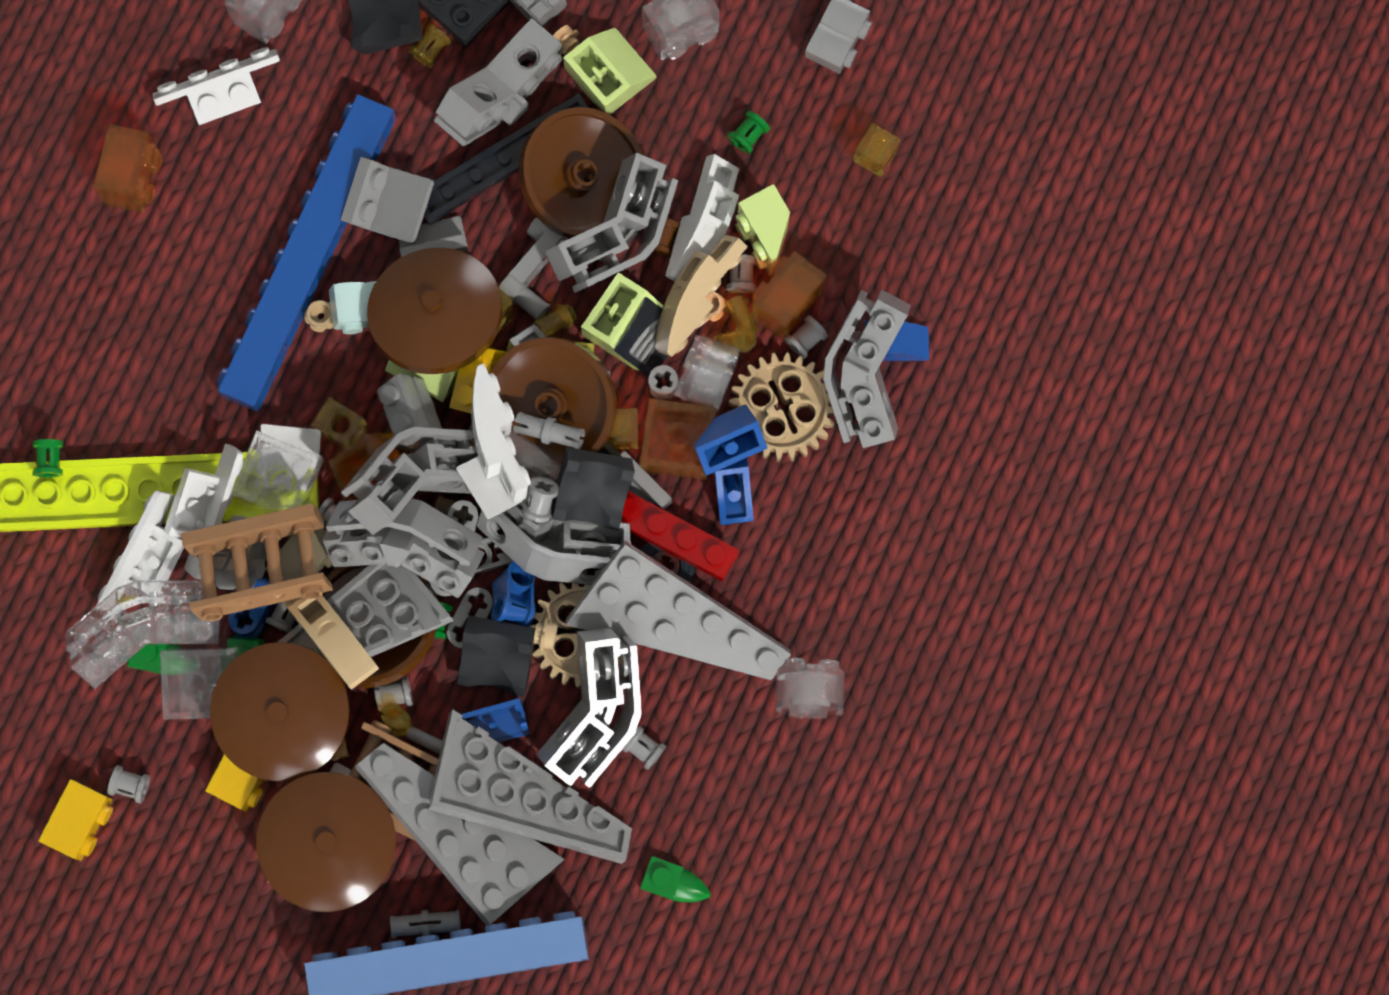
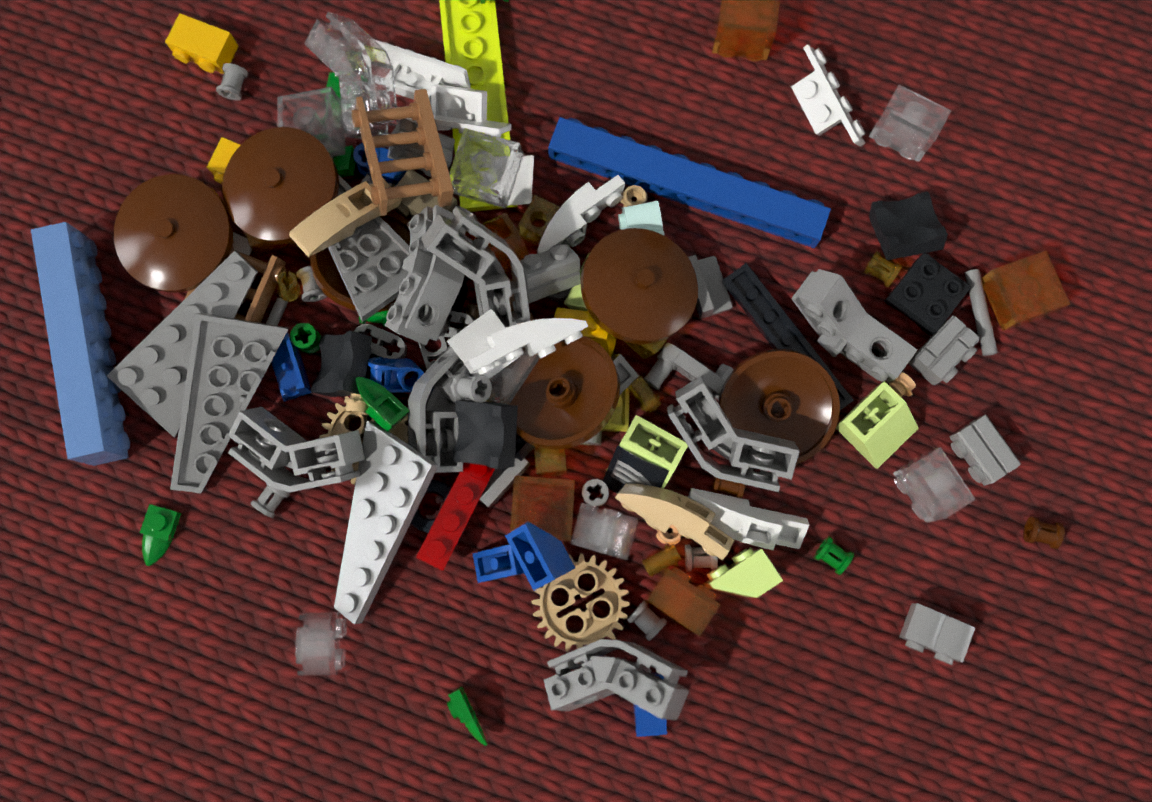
camera: 90 degrees right, 0 degrees up
(347, 387) = (583, 207): none -> white slope
(387, 200) = (738, 240): light grey bracket -> none
(401, 926) = (119, 325): light grey pin -> none
(465, 692) = (298, 337): none -> green bush
(549, 430) = (534, 390): light grey pin -> none
(551, 603) = (382, 404): none -> green plate
(741, 338) = (638, 559): clear yellow pin -> none
(876, 150) = (829, 676): clear yellow brick -> none
(888, 542) = (461, 707): none -> green plate

